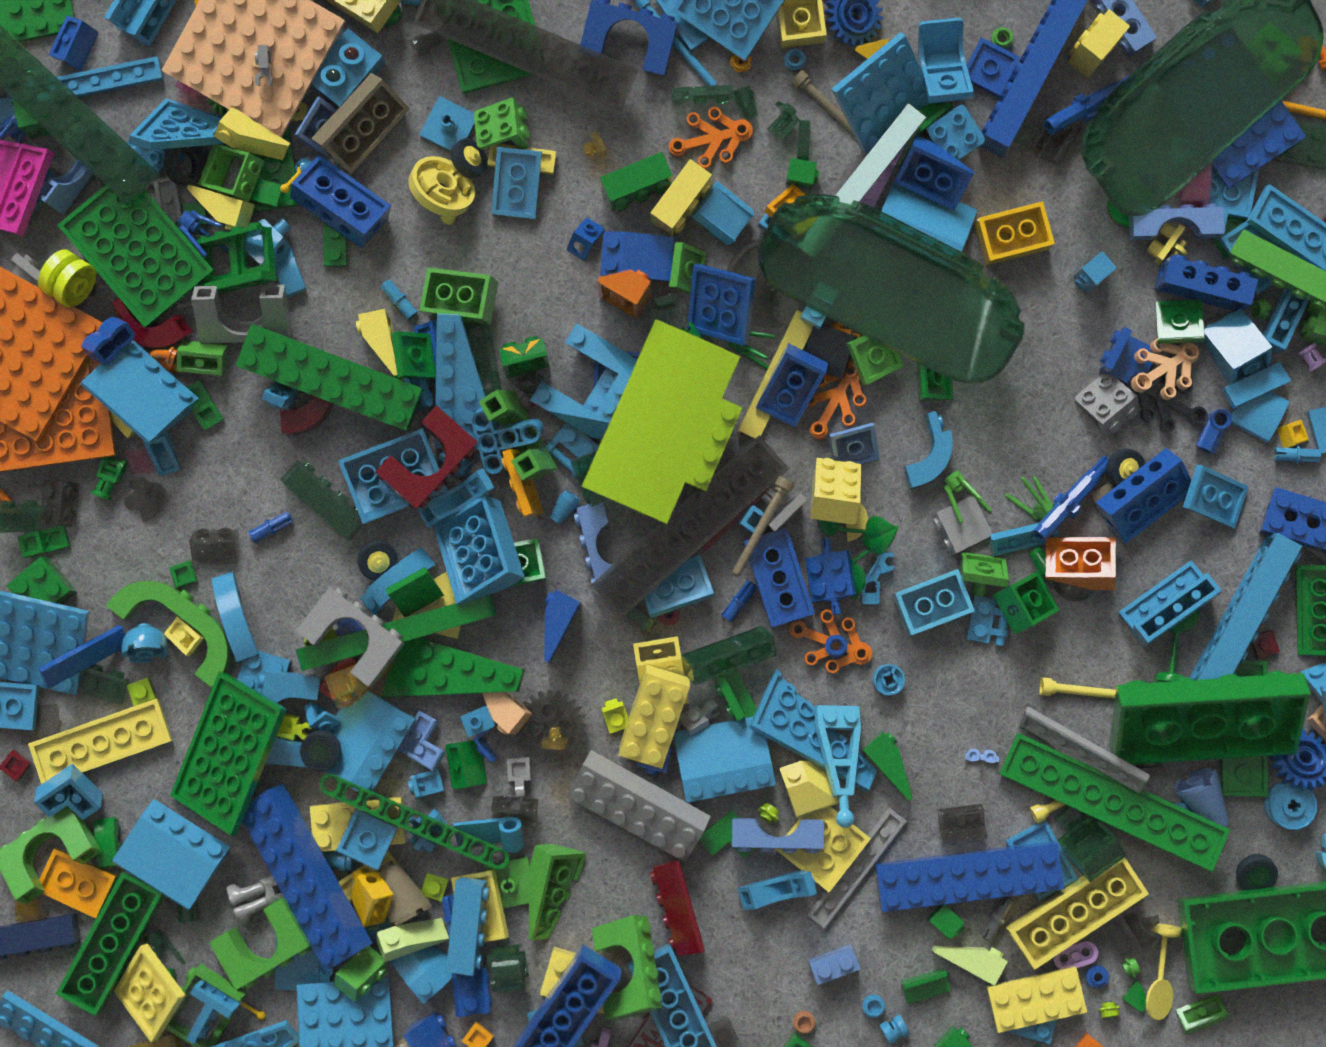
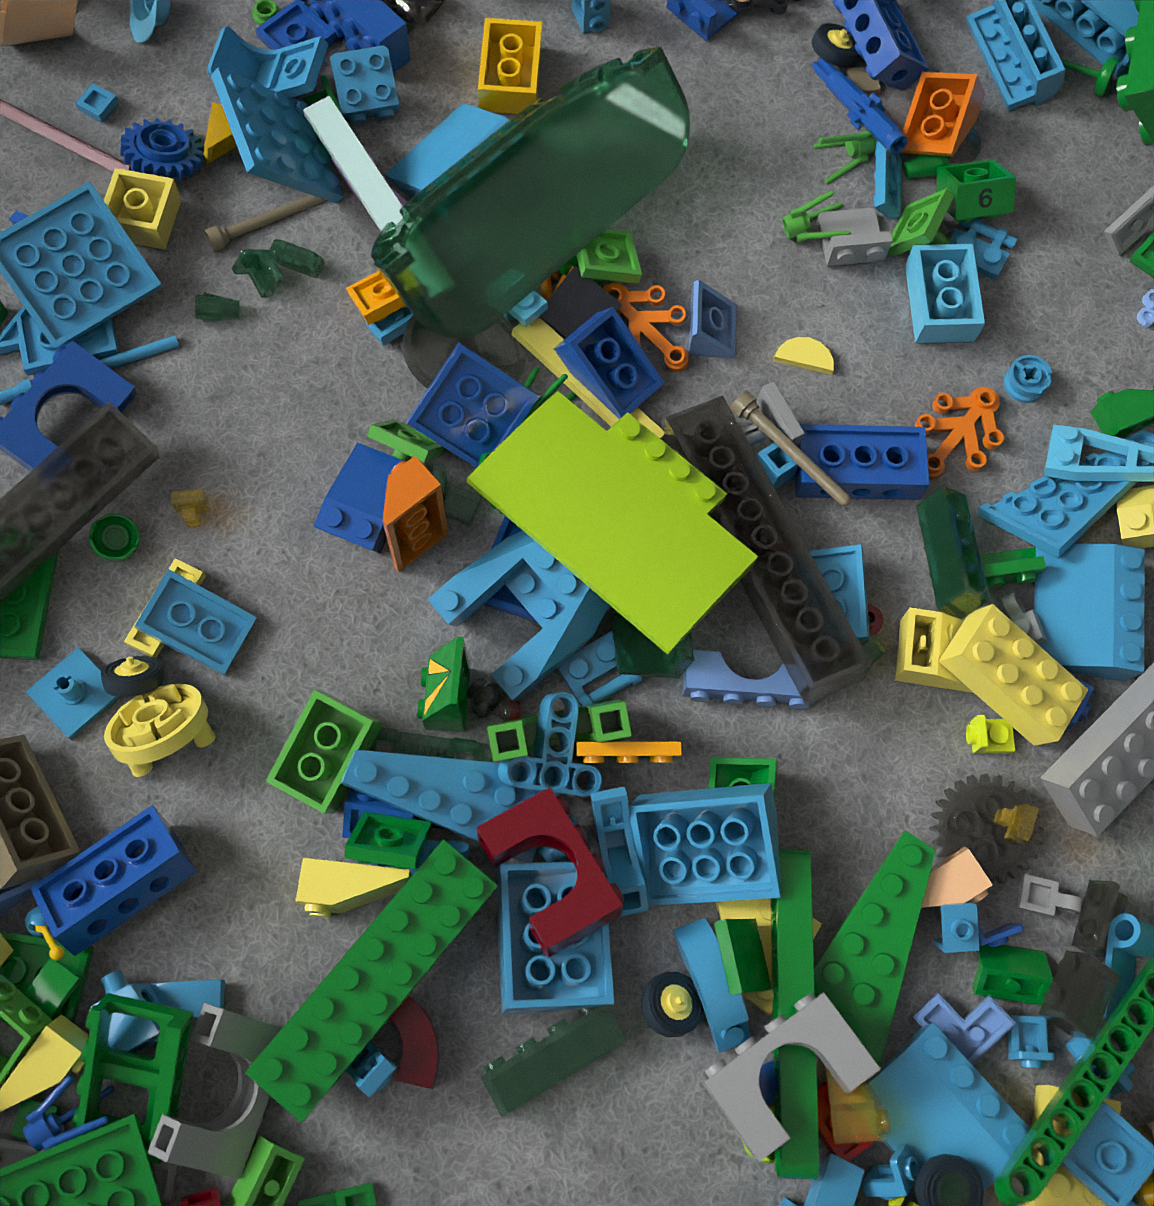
camera: 75 degrees left, 15 degrees down
(270, 527) = (567, 1160): blue axle -> none
(334, 247) = (177, 916): green plate -> none
(399, 299) = (293, 846): dark azure axle -> none
(460, 804) = (1079, 994): none -> clear smoke piece
(501, 123) = (104, 616): bright green bracket -> none
(557, 101) = (111, 532): none -> green hair
(558, 617) = (842, 765): blue slope -> none
(564, 506) = (676, 708): dark azure cone -> none
(585, 234) = (307, 555): blue bracket -> none
(637, 182) = (263, 464): green brick -> none
(681, 198) = (310, 415): light yellow brick -> none
(702, 94) = (182, 354): clear green plate -> none
(713, 136) = (243, 361): orange plant -> none
(722, 213) = (351, 376): dark azure slope -> none
(739, 601) = (874, 524): blue axle -> none
(745, 66) = (168, 299): light orange plate -> none
(794, 53) = (186, 229): dark azure plate -> none
(802, 173) = (336, 272): green brick -> none
(830, 576) = (876, 397): blue plate -> none
(836, 491) = (771, 349): light yellow brick -> none
(843, 646) = (973, 416): blue plate -> none
(877, 537) = (844, 308): green plant -> none
(878, 568) = (878, 346): dark azure piece -> none
(933, 173) = (401, 120): blue slope -> none
(933, 385) = (657, 215): green slope -> none
(938, 458) = (754, 232): dark azure arch -> none
(1050, 687) = (1083, 204): light yellow piece -> none
(1109, 403) = (750, 38): light grey bracket -> none

